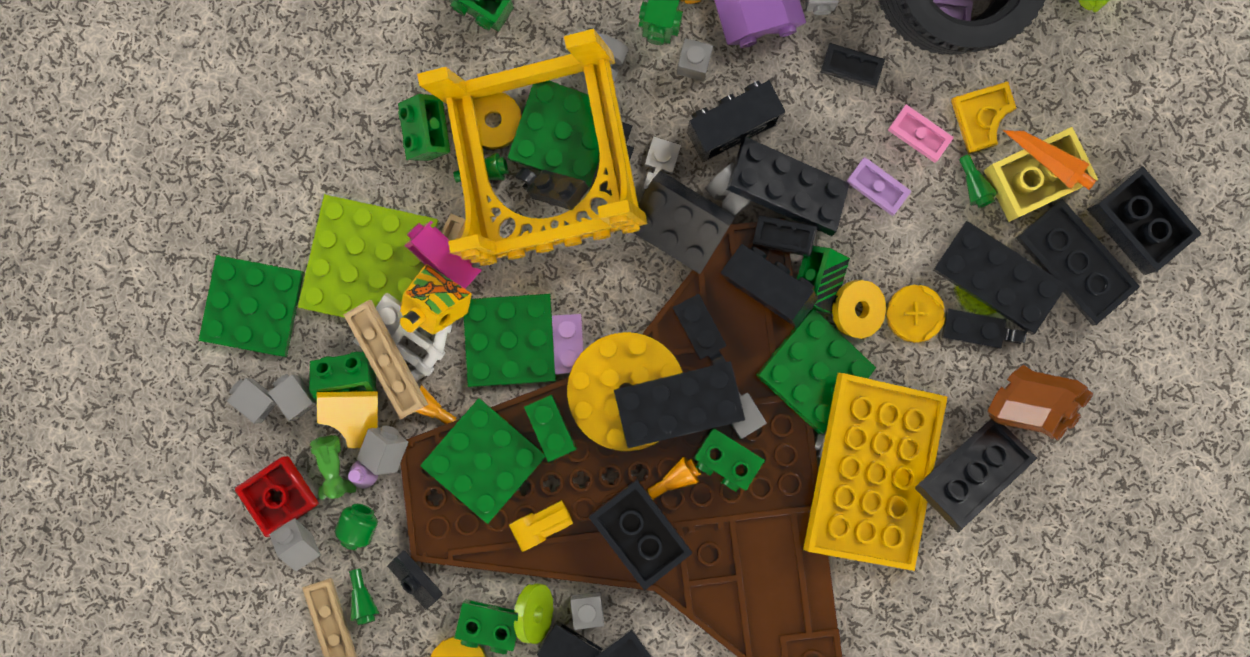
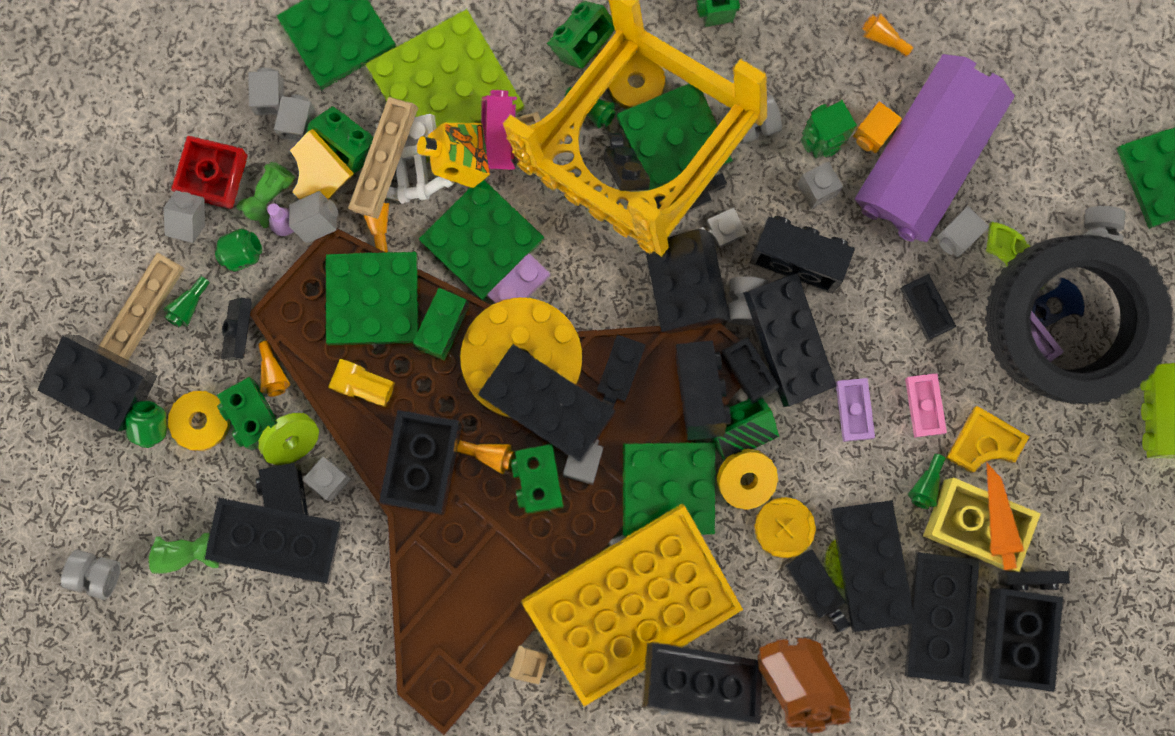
camera: 45 degrees right, 5 degrees down
(474, 584) = (272, 376): none -> light orange cone
(850, 584) = (528, 665): none -> tan plate
(1117, 164) = (1047, 579): none -> black plate

